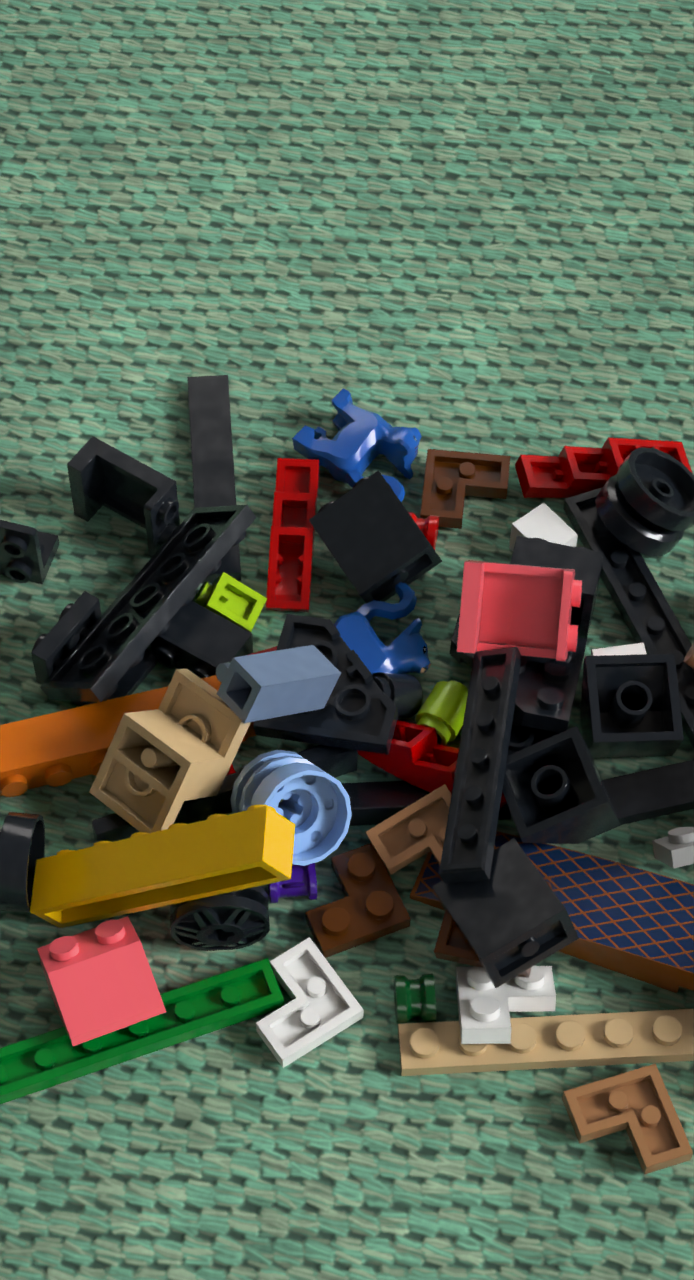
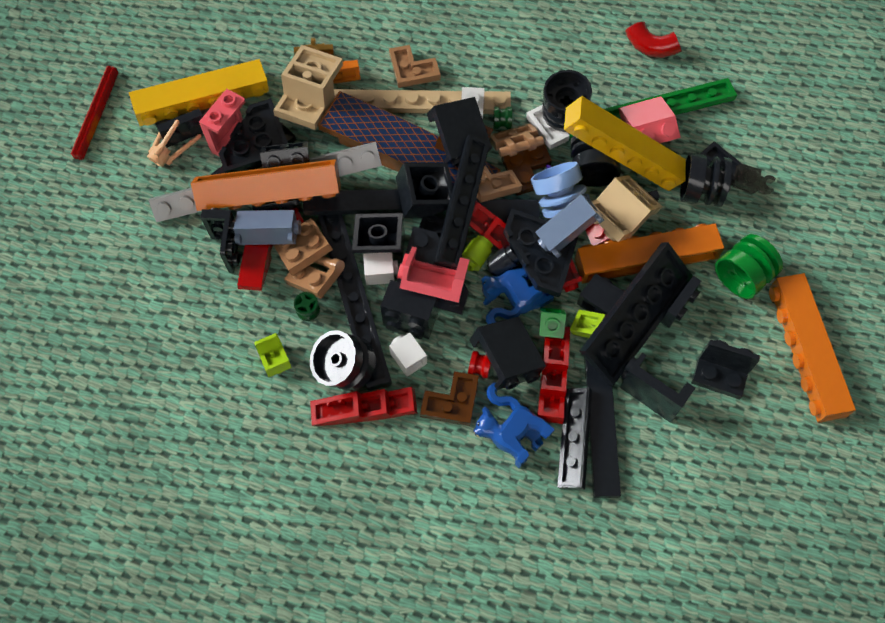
camera: 175 degrees left, 10 degrees up
(72, 1212) = (651, 44): none -> red cylinder
(257, 444) = (575, 439): none -> black tile
(284, 966) = (561, 91): none -> black wheel
(297, 595) = (552, 322): none -> green bracket
(390, 952) = (516, 140): none -> medium nougat plate

